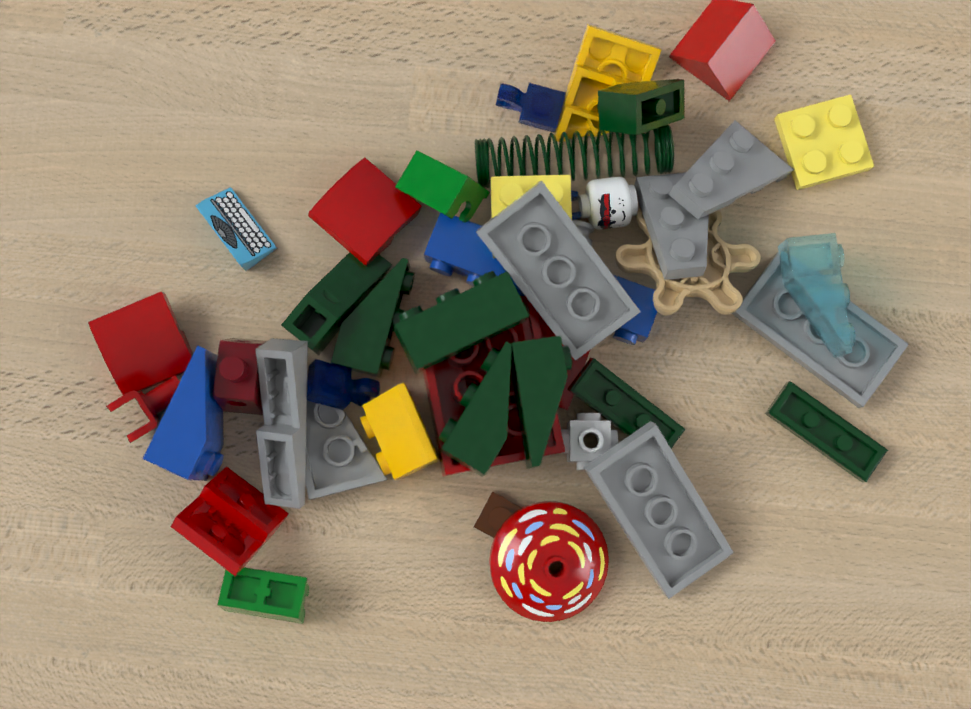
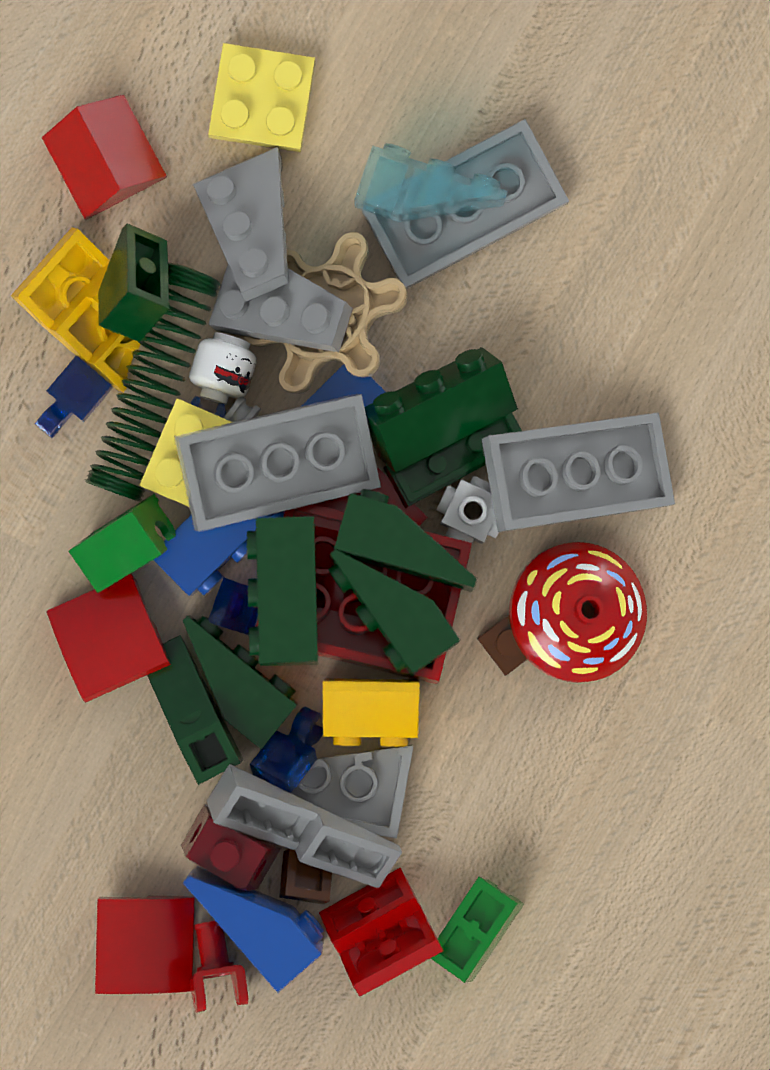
camera: 65 degrees left, 5 degrees up
(236, 228) = (60, 787): slope -> none
(243, 443) = (303, 881): none -> reddish brown plate
(428, 288) = (232, 607): none -> clear blue plate
(657, 378) = (439, 408): none -> dark green brick
(826, 431) = (577, 250): dark green tile -> none

